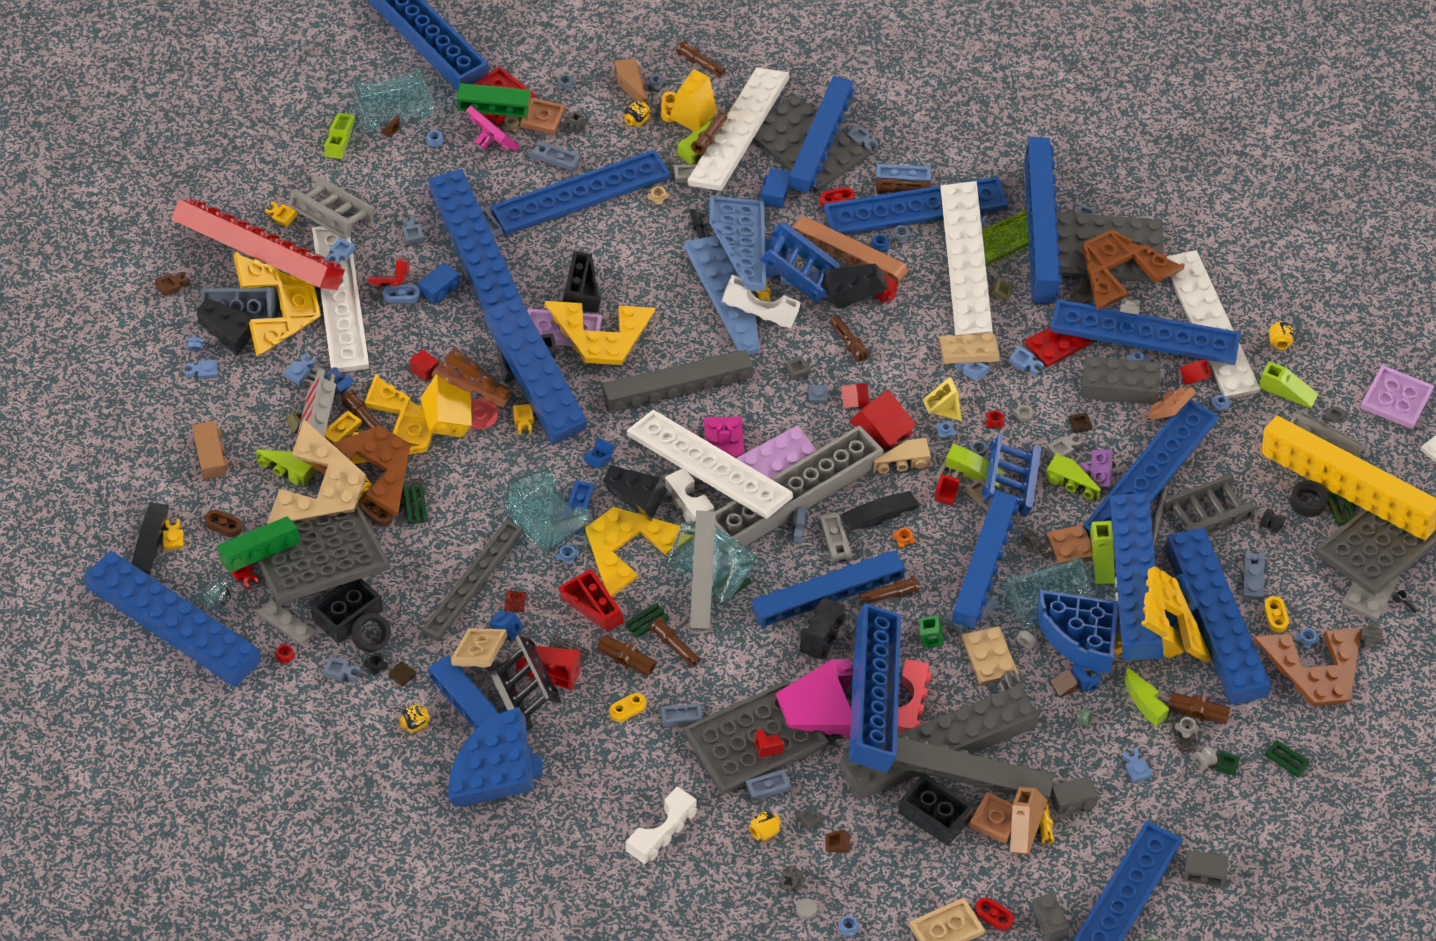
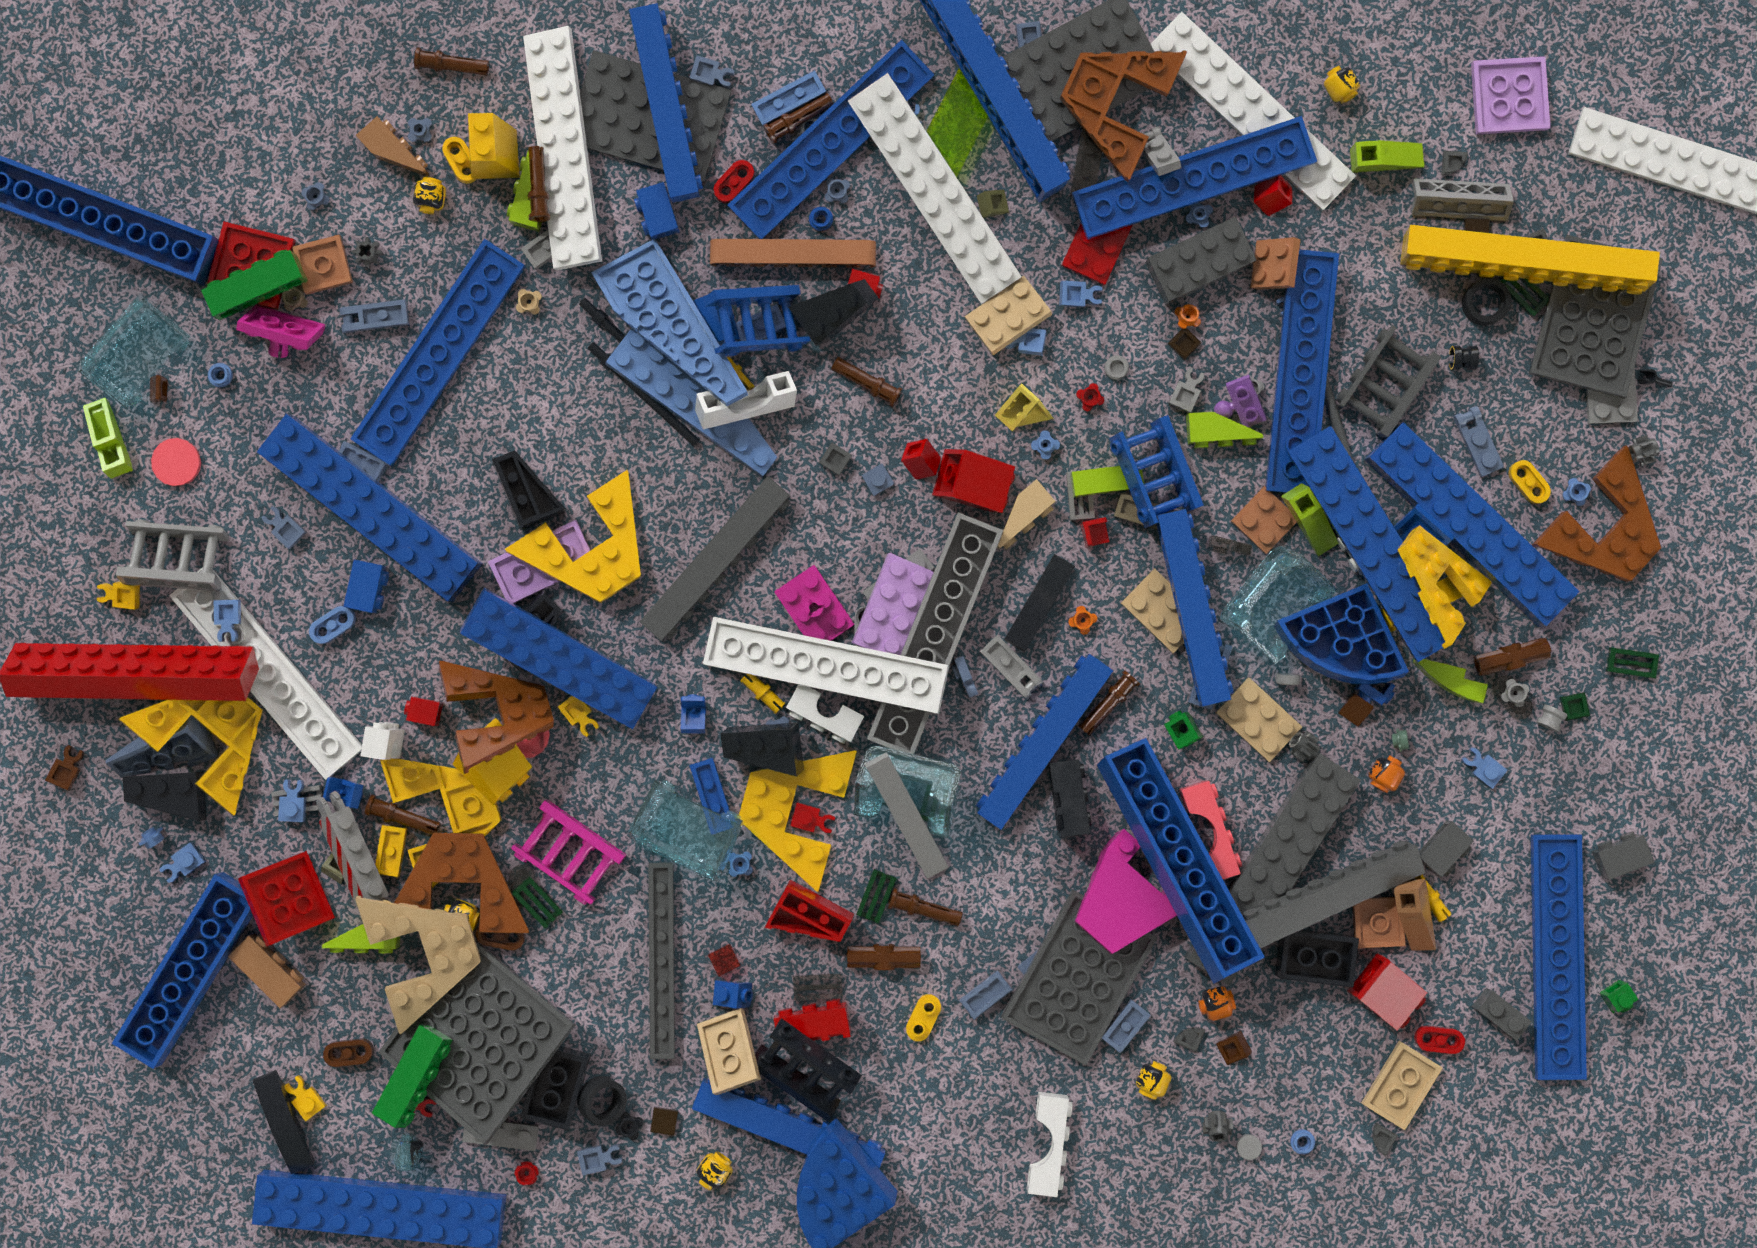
camera: 30 degrees left, 35 degrees up
(158, 421) = (186, 972): none -> blue brick
(255, 412) = (286, 898): none -> red plate
(371, 167) = (176, 462): none -> coral tile
(388, 351) = (382, 741): none -> white arch
(402, 270) = (306, 616): red bracket -> none
(470, 475) = (590, 841): none -> dark pink fence
(634, 553) = (807, 817): none -> red plate
(654, 466) = (763, 692): none -> yellow pin
(699, 285) = (657, 407): none -> black bar
(768, 745) = (1103, 985): red panel -> none
(844, 803) = (1217, 1003): none -> orange head
(957, 555) = (1156, 610): none -> tan plate
(974, 856) = (1388, 992): none -> slope
(981, 446) = (1098, 445): sand blue plate -> none
(1060, 729) = (1386, 774): none -> orange head
(1092, 407) = (1192, 312): none -> orange plate
(1218, 405) = (1319, 228): medium blue plate -> none

